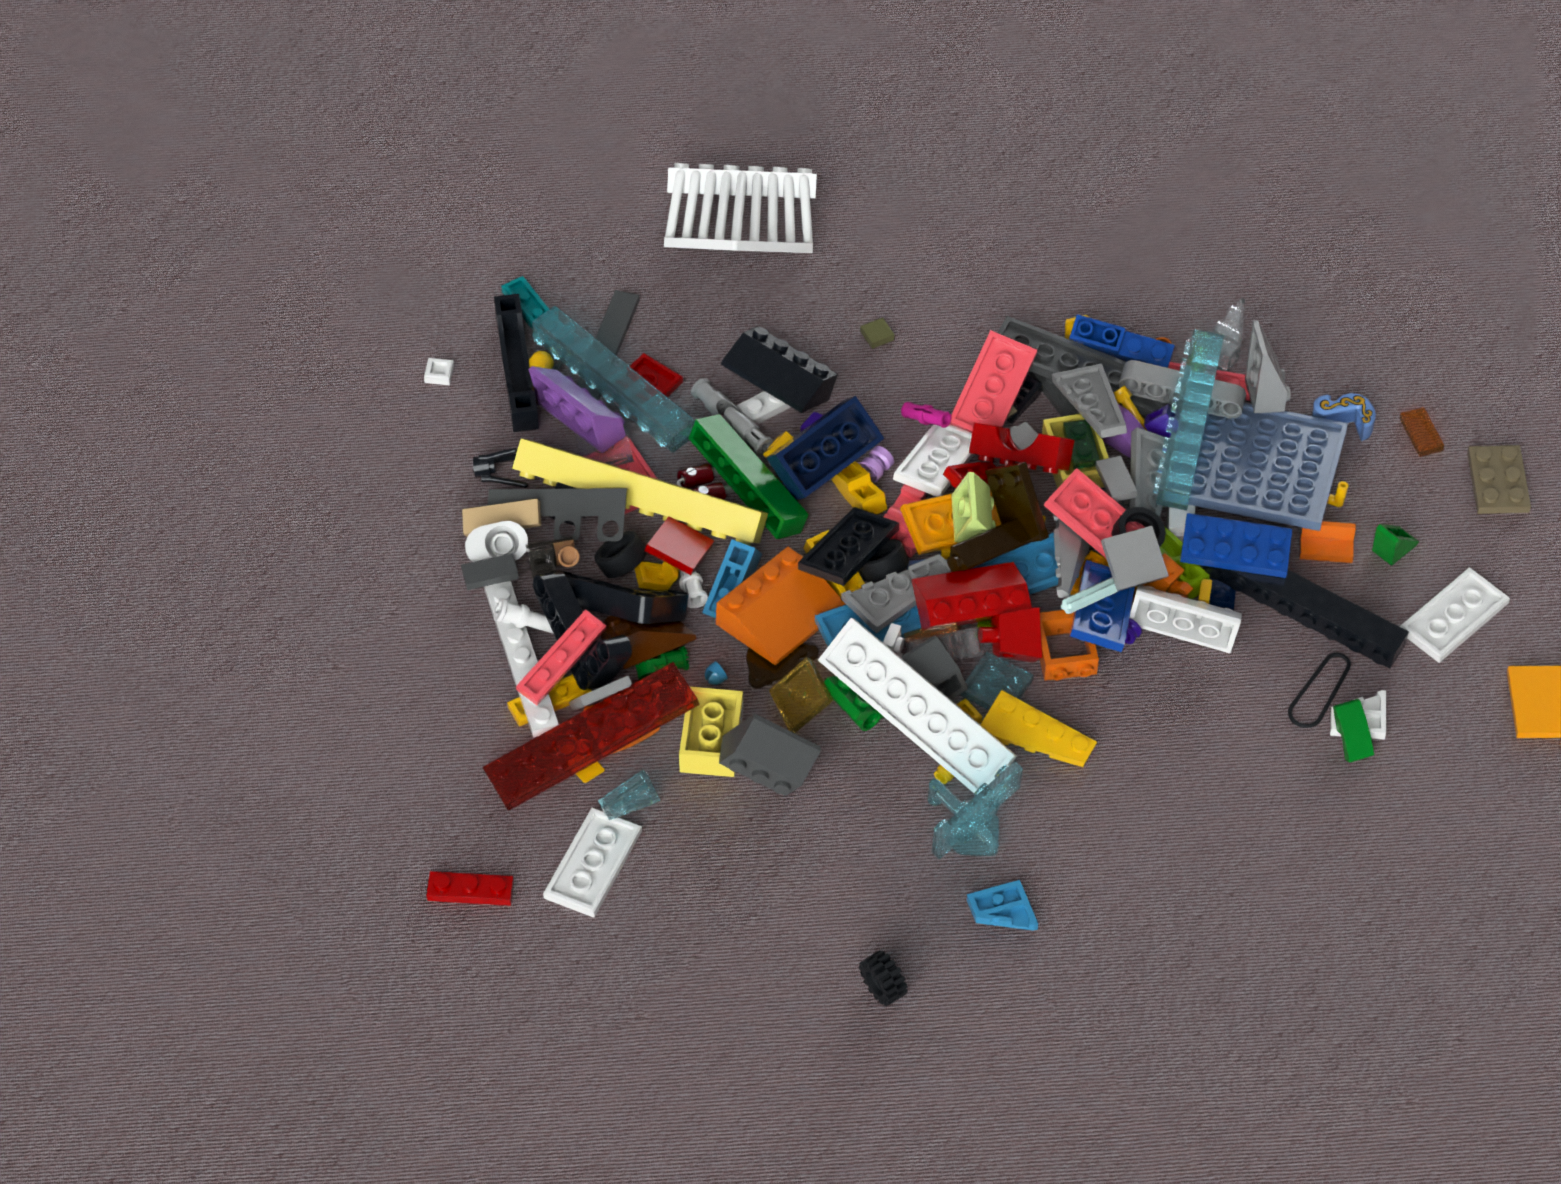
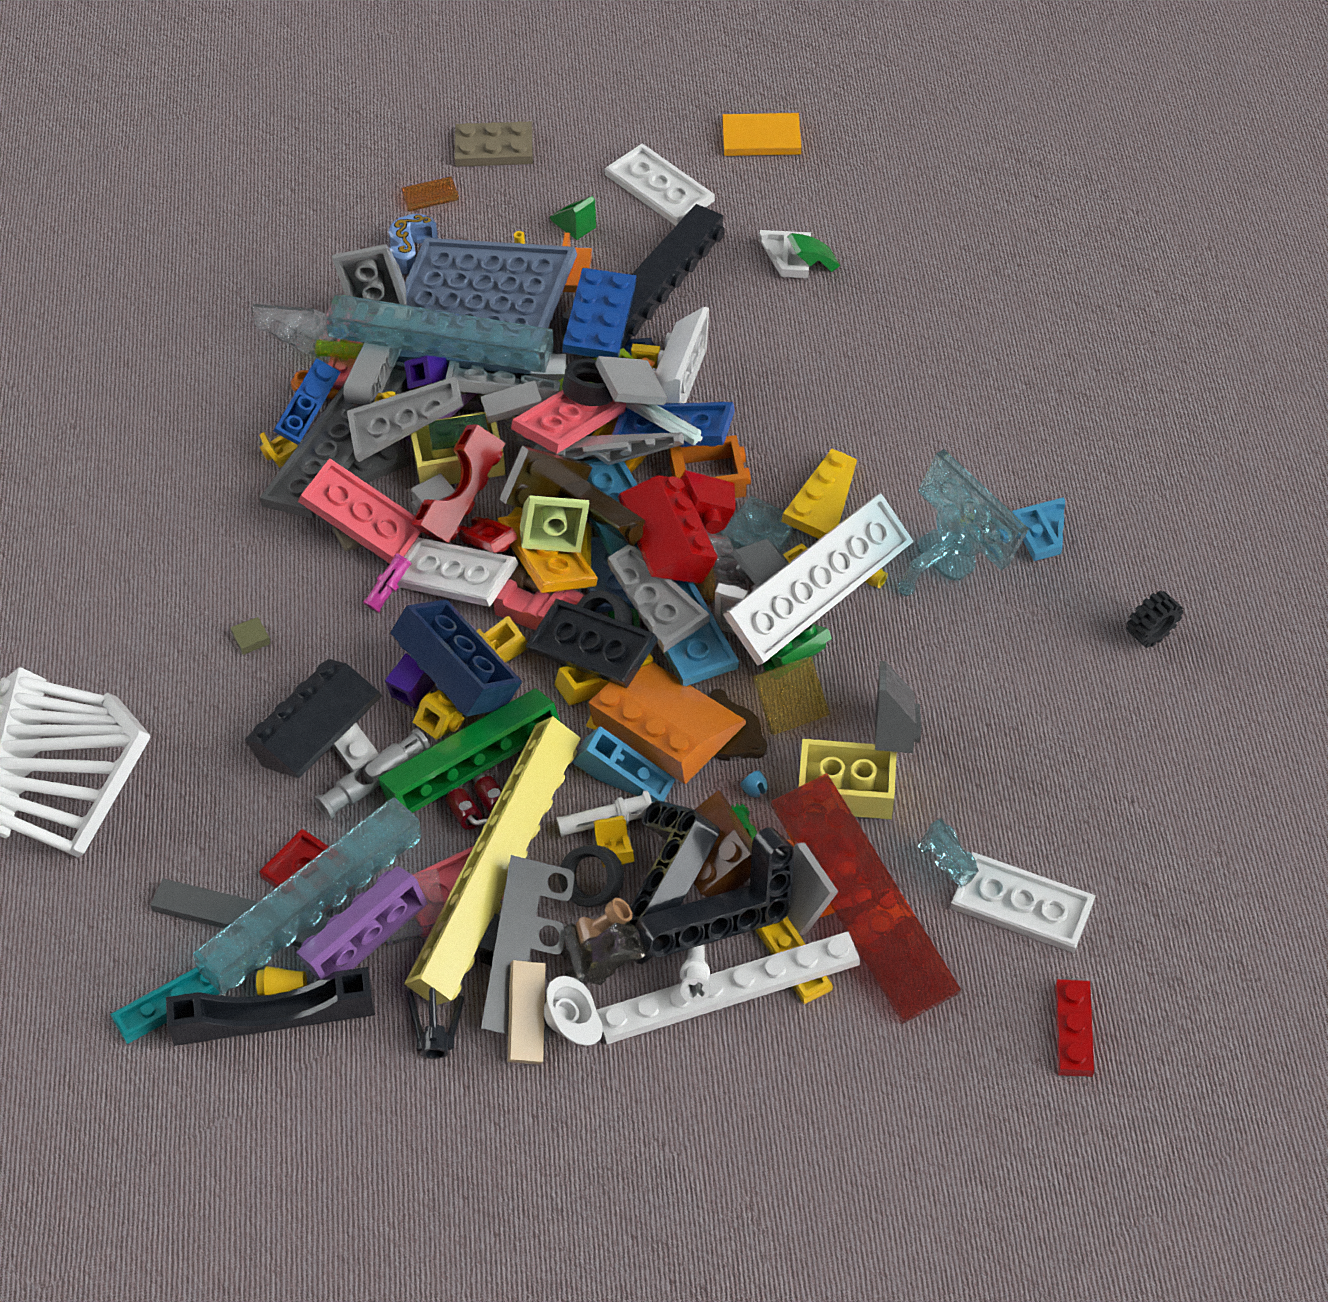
camera: 90 degrees left, 0 degrees up
(438, 371) = (263, 1109): white tile -> none
(489, 571) = (617, 1018): dark grey tile -> none
(561, 657) = (765, 919): coral tile -> none
(679, 545) = (581, 812): tile -> none
(1309, 683) = (754, 275): black piece -> none

